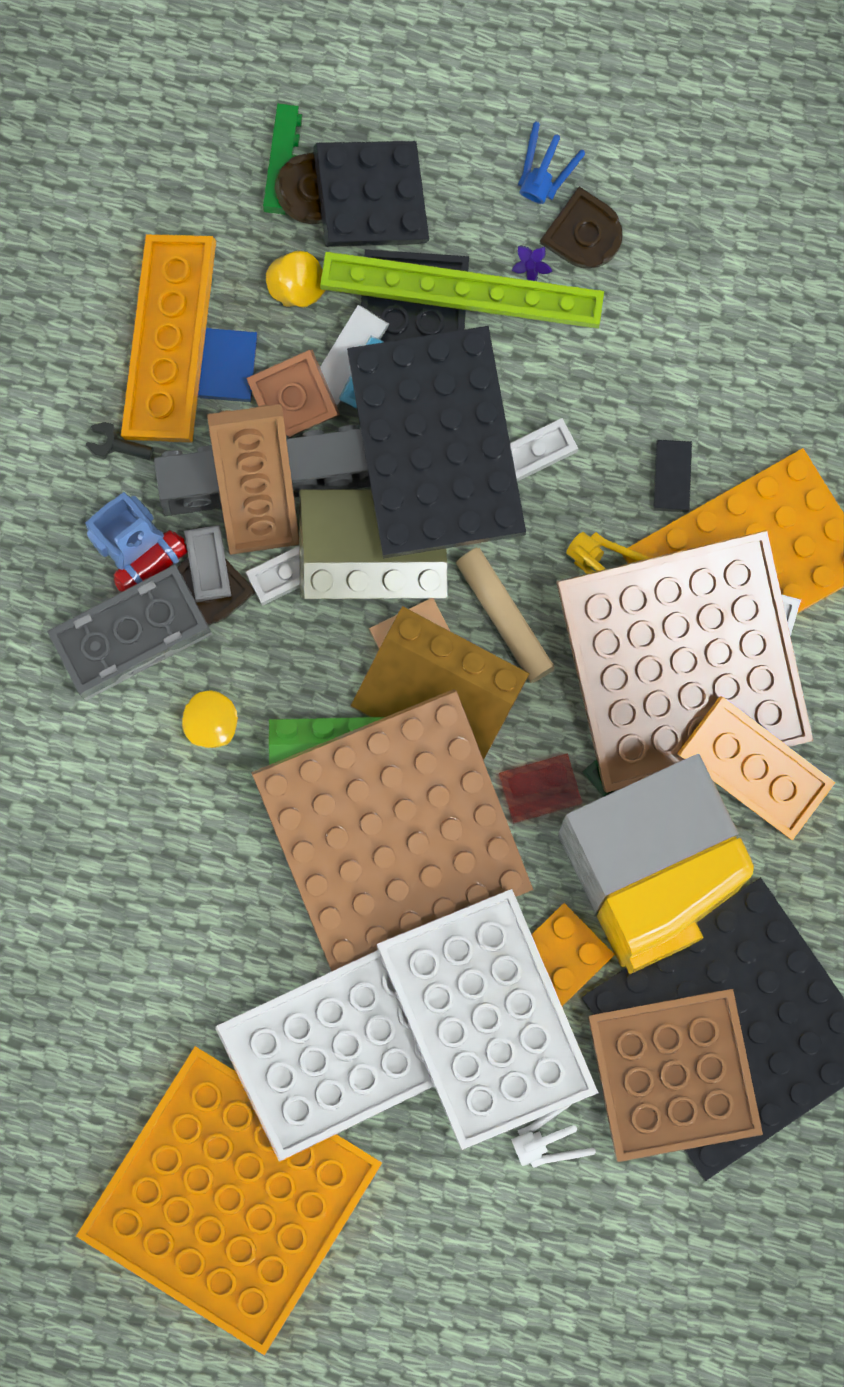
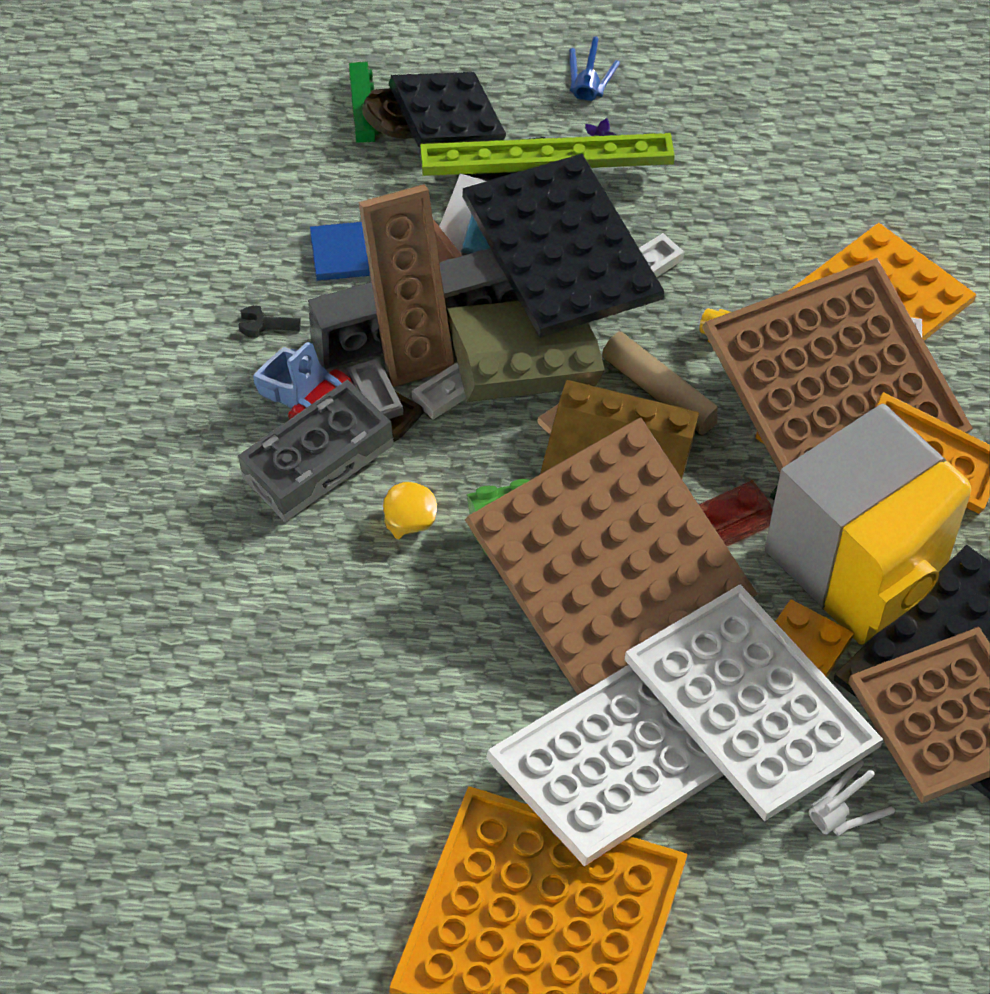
camera: 10 degrees left, 25 degrees down
(168, 338) = (295, 233): light orange plate -> none
(295, 279) = (396, 173): yellow hair -> none
(585, 232) = (638, 110): dark brown tile -> none
(672, 476) = (772, 262): black tile -> none

